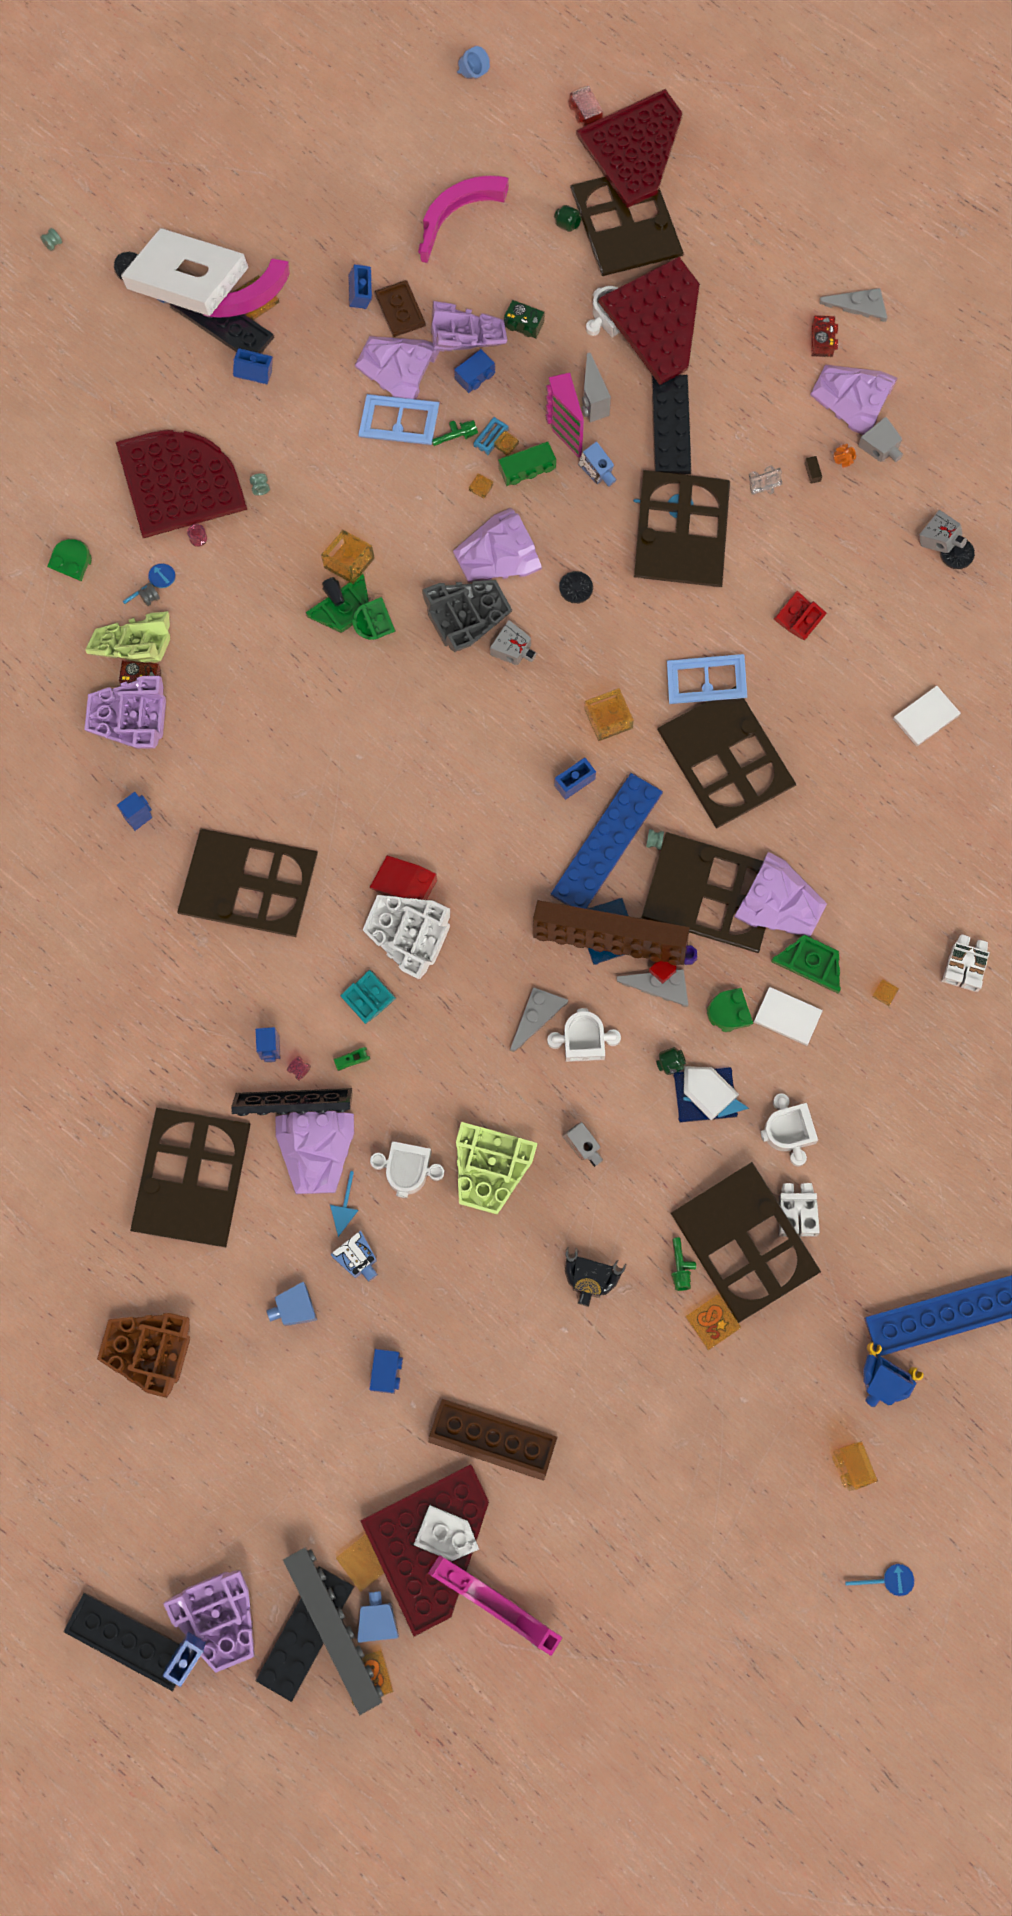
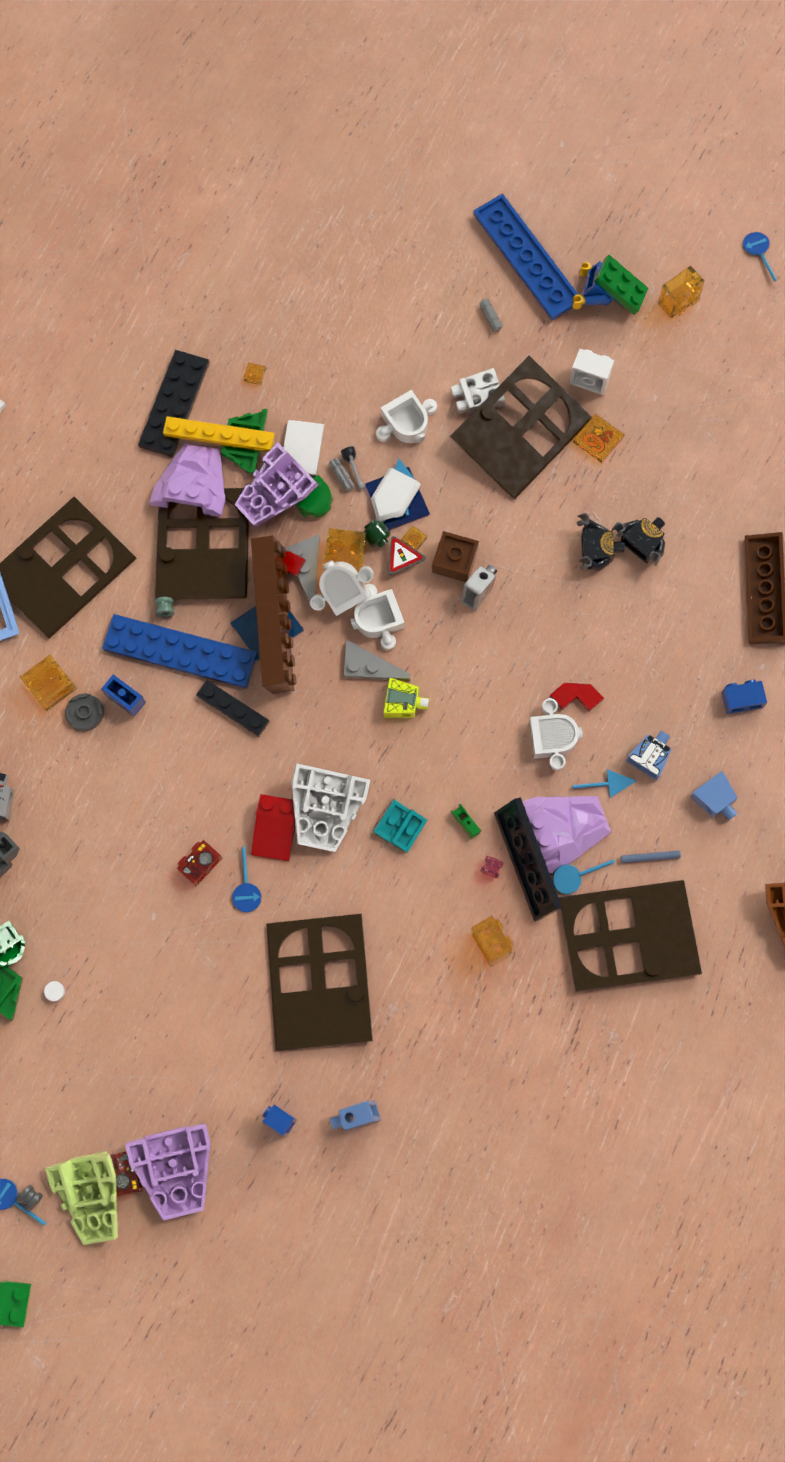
camera: 105 degrees left, 0 degrees up
(115, 879) = (363, 1113): none -> medium blue torso
(226, 1047) = (487, 941): none -> clear yellow piece
(258, 1223) = (650, 856): none -> sand blue bar
(264, 1137) = (568, 878): none -> dark azure piece
(268, 1044) = (480, 900): blue brick -> none
(319, 656) = (54, 991): none -> white tile
(349, 841) = (246, 896): none -> blue piece
(392, 805) = (199, 862): none -> clear red brick
(442, 1214) = (583, 692): none -> red tile
(490, 1035) = (403, 700): none -> torso
(490, 1166) = (527, 659): yellowish green wedge -> none
(534, 876) = (232, 708): none -> black plate
(573, 743) = (84, 712): none -> dark grey tile
(584, 1328) = (643, 538): none -> torso
(619, 1006) = (342, 586): none -> white piece
(621, 1129) = (455, 556): none -> reddish brown container
(639, 1078) = (402, 556): none -> piece
(655, 1097) = (414, 537): none -> clear yellow plate
(659, 1022) = (345, 547): none -> clear yellow piece
(681, 1277) = (571, 471): green piece -> none
(744, 975) = (275, 487): none -> lavender wedge
(748, 1046) = (341, 474): none -> light grey axle
(765, 1060) = (349, 455): none -> hinge
(786, 1335) = (591, 371): none -> white brick
(822, 936) = (219, 434): none -> yellow plate
(874, 905) = (174, 400): none -> black plate
(880, 1401) = (621, 284): none -> green plate
(887, 1254) = (491, 315): none -> light grey axle
(966, 957) = (209, 312): white hips -> none

